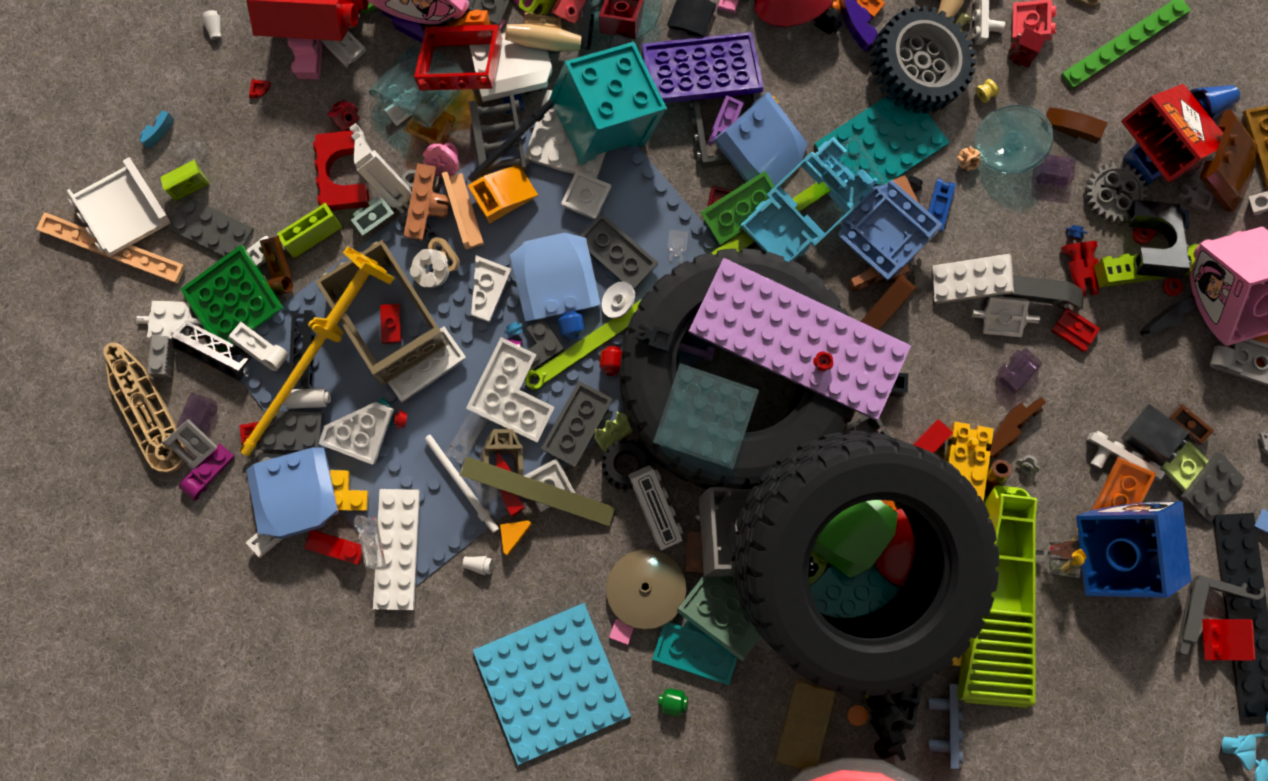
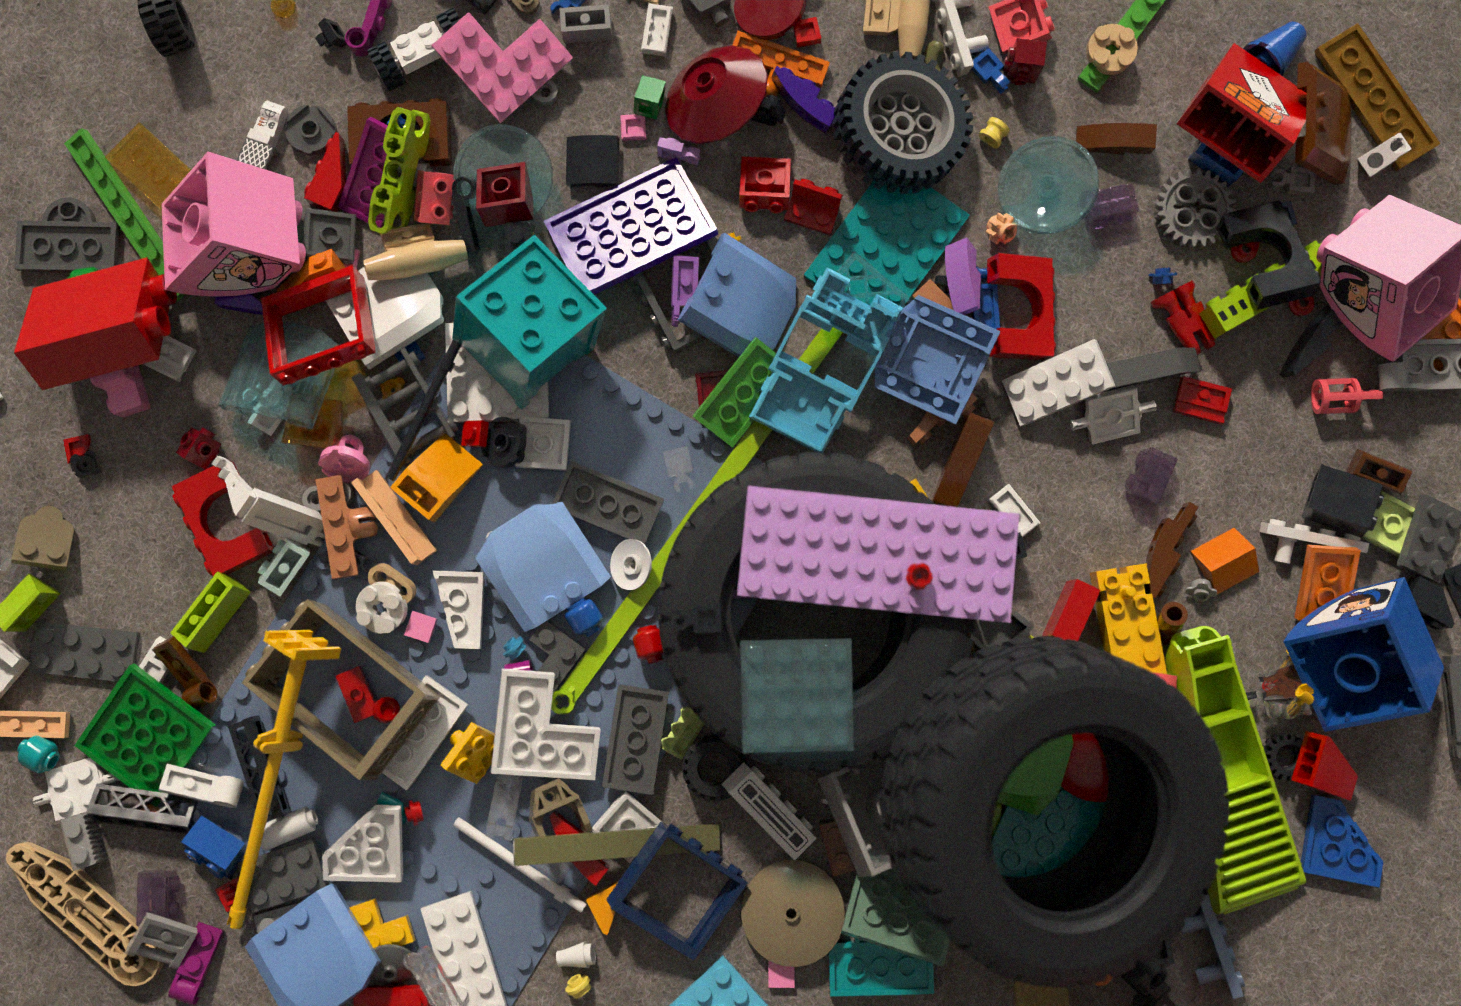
camera: 20 degrees left, 5 degrees up
(152, 286) = (38, 754): none -> teal head
(213, 141) = (44, 540): none -> dark tan plate
(250, 394) = (214, 848): none -> blue slope
(256, 104) = (80, 469): none -> black plate
(346, 517) = (391, 968): none -> dark grey dish
(405, 338) = (385, 709): none -> red tile
(452, 292) = (421, 626): none -> bright pink tile
(454, 389) = (470, 753): none -> yellow plate
(471, 585) = (578, 986): none -> light yellow plate
(489, 119) = (389, 384): none -> light orange plate
(540, 171) = (474, 433): none -> red plate
(563, 192) = (515, 445): none -> black plate
(588, 570) = (714, 915): none -> dark blue window
(751, 24) = (672, 148): none -> lavender plate
(808, 71) = (764, 184): none -> red plate
(838, 97) = (813, 206): none -> red bracket
(913, 364) = (1008, 501): none -> white plate
(929, 180) = (963, 276): none -> medium lavender slope
(981, 201) = (1035, 279): none -> red arch
(999, 45) = (988, 68): none -> blue plate
(1055, 450) = (1226, 560): none -> orange slope
(1062, 608) = (1273, 746): none -> black tyre
(1068, 687) = (1337, 845): none -> blue plate
(1076, 623) = (1324, 767): none -> red slope
(1100, 53) = (1117, 35): none -> tan plate
(1187, 363) = (1351, 395): none -> coral piece
(1197, 533) = (1431, 603): none -> black slope

